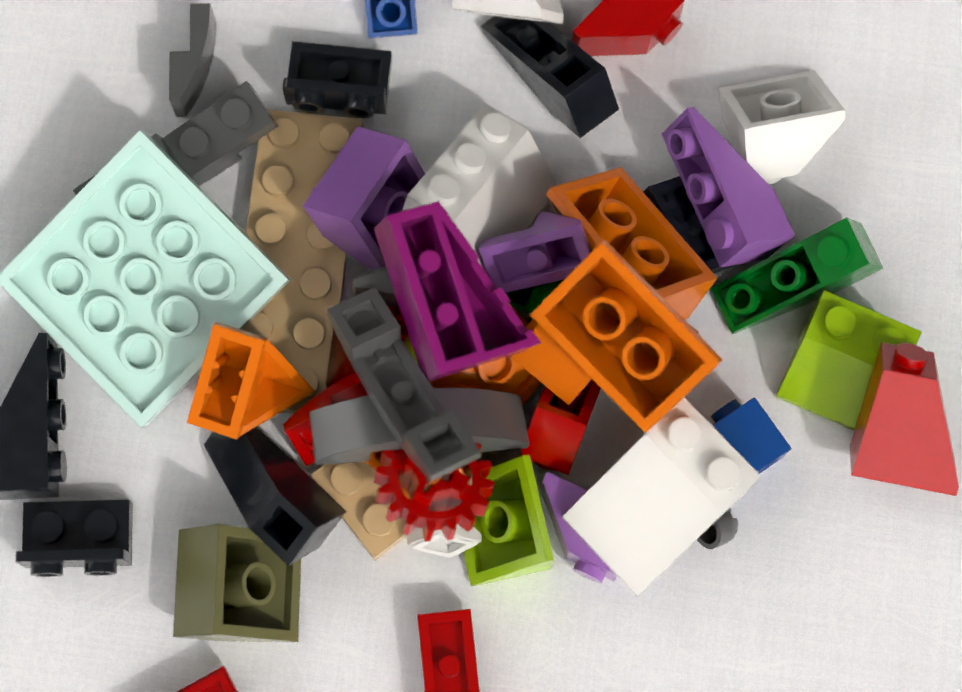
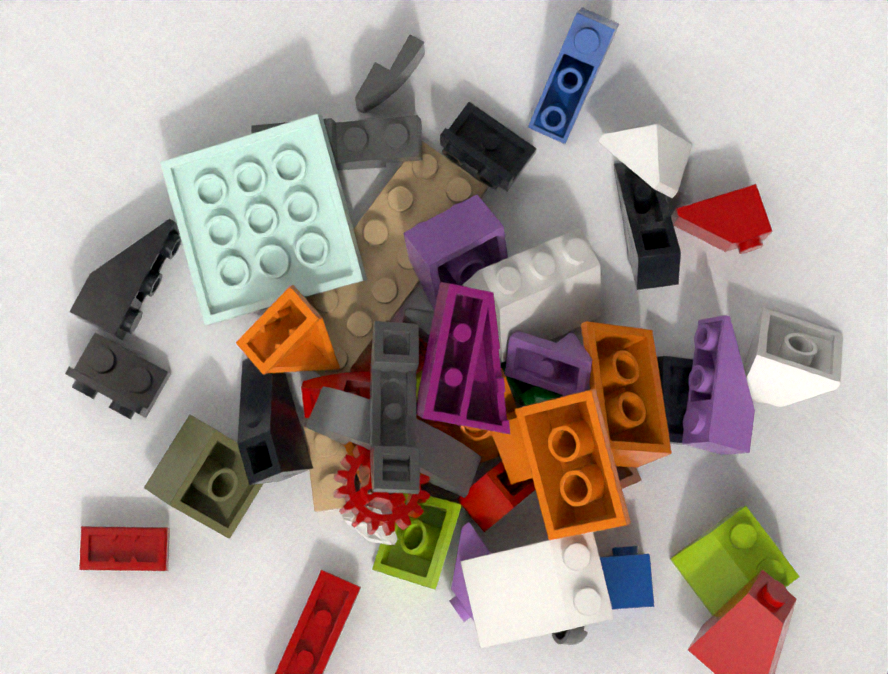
camera: 30 degrees right, 5 degrees up
(798, 275) = (737, 481): green slope -> none

